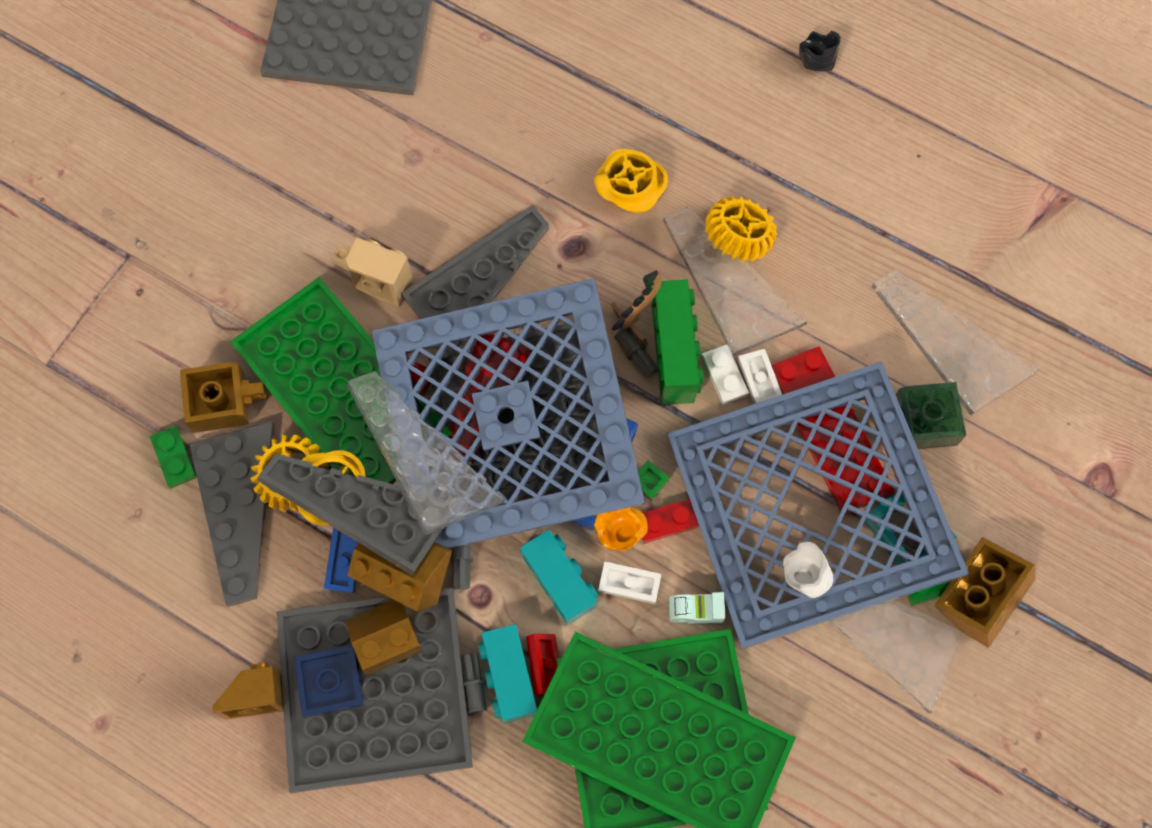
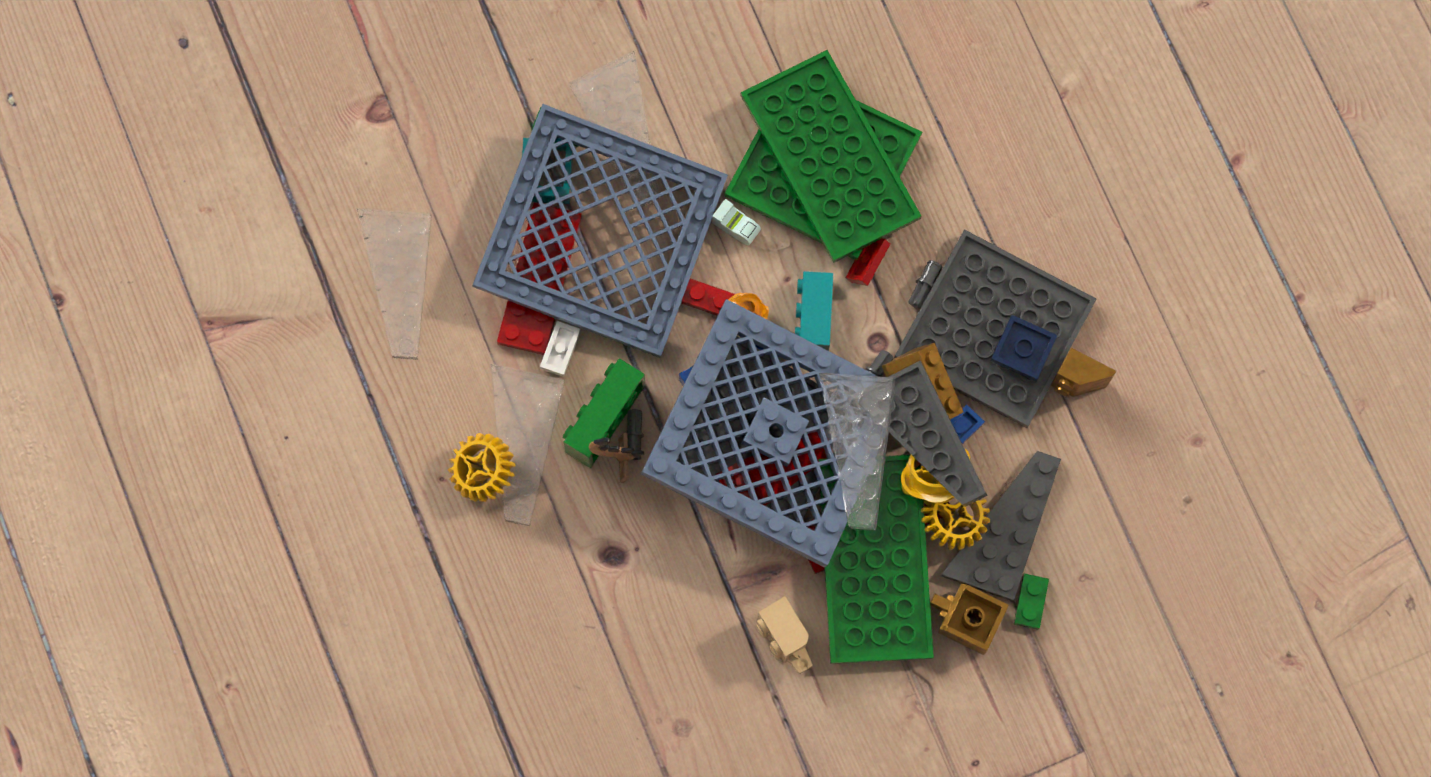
camera: 145 degrees left, 5 degrees up
(382, 636) = (967, 351): pearl gold slope -> none
(480, 270) = (720, 579): dark grey wing -> none
(507, 674) = (897, 271): teal brick -> none
(612, 185) = (519, 595): yellow piece -> none
(629, 582) = (768, 273): white plate -> none
(652, 480) = (697, 332): green plate -> none
(724, 374) = (582, 372): white plate -> none
(808, 570) = (648, 181): white hair -> none
(820, 51) = (290, 574): black hair -> none
(937, 402) = (464, 216): clear green hinge -> none
(989, 593) = (525, 91): pearl gold slope -> none

